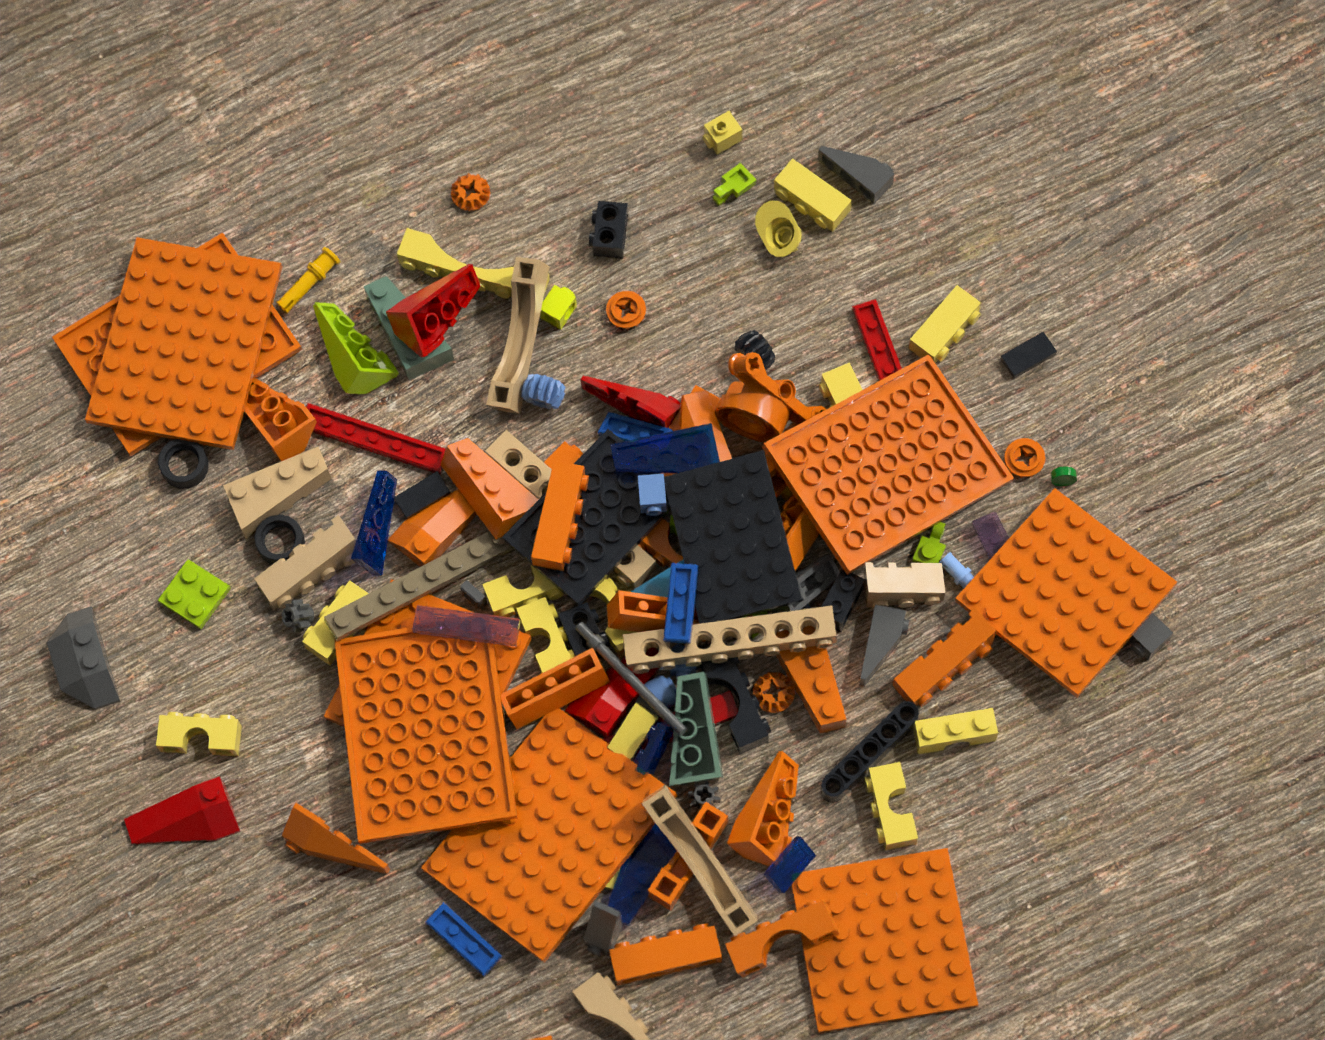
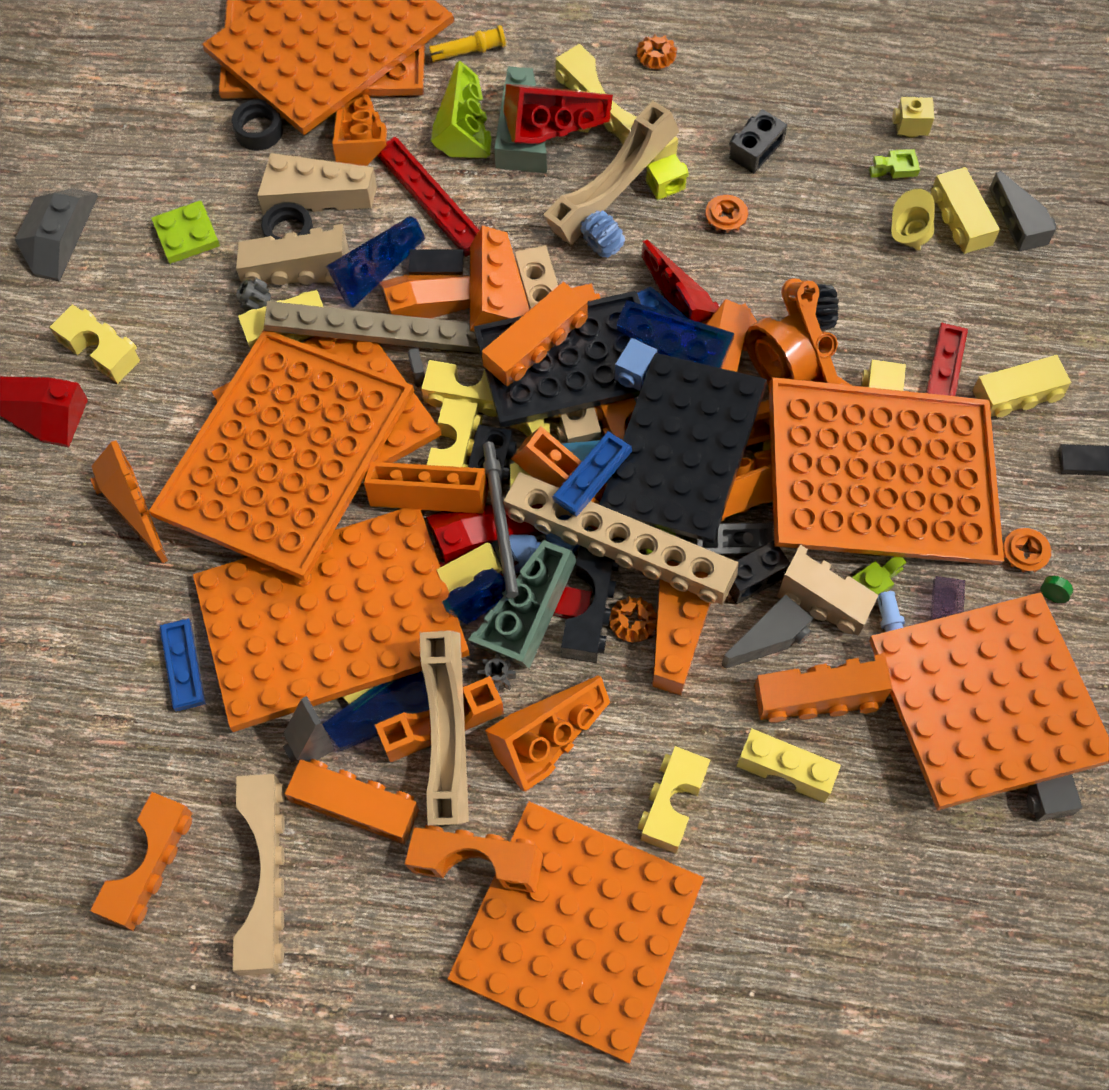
camera: 30 degrees right, 5 degrees down
(466, 625) = (385, 382): plate -> none
(789, 864) = (533, 791): clear blue tile -> none
(862, 762) = (698, 721): black beam -> none

